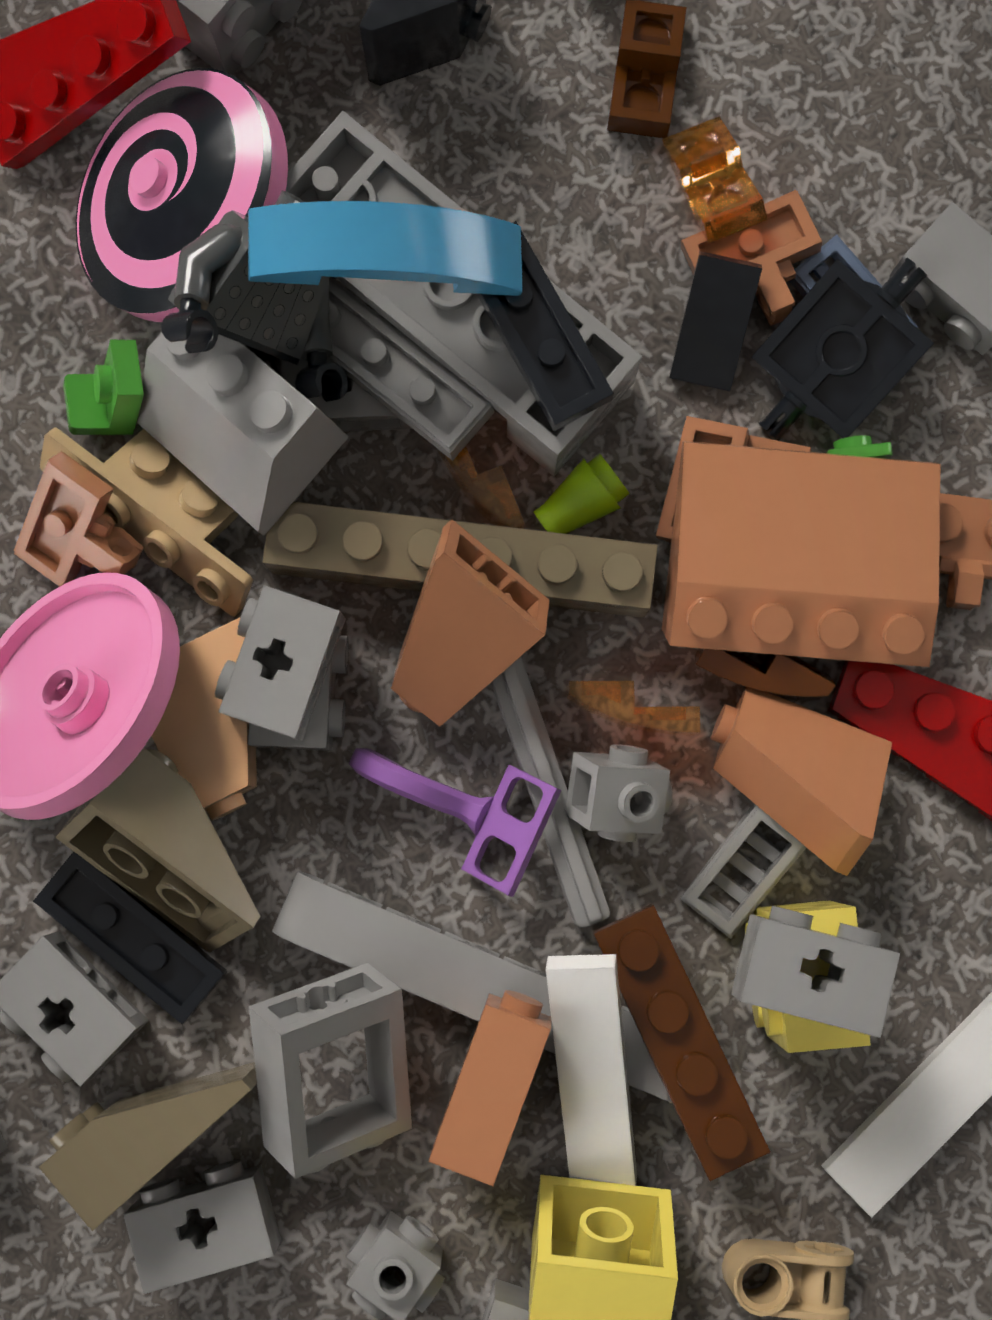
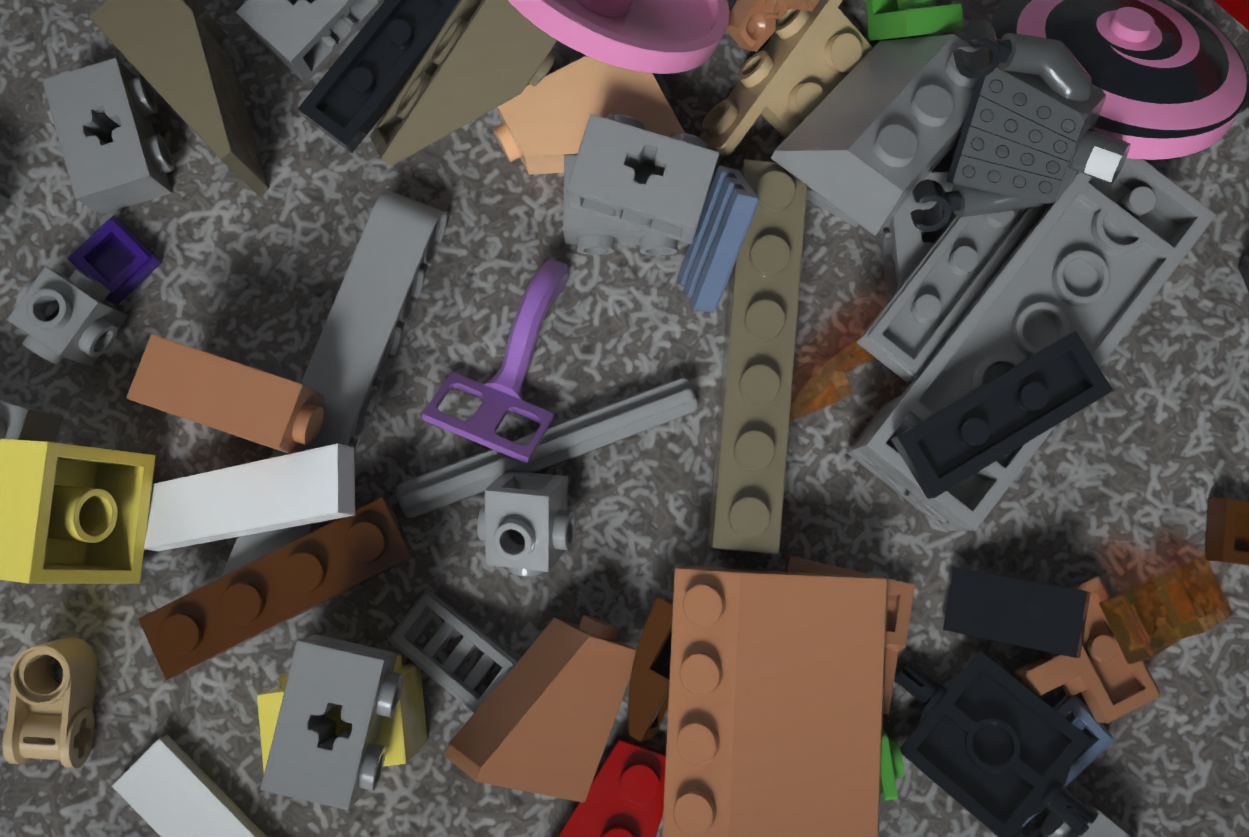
camera: 85 degrees right, 0 degrees up
(310, 1018) = (284, 201): light grey window -> none
(331, 1222) = (115, 259): none -> dark purple tile
(359, 598) = (718, 239): none -> sand blue tile
(384, 243) = (1083, 248): dark azure slope -> none
(465, 627) = (689, 359): nougat slope -> none
(583, 497) = (825, 480): lime cone -> none
(616, 703) = (617, 518): clear orange slope -> none

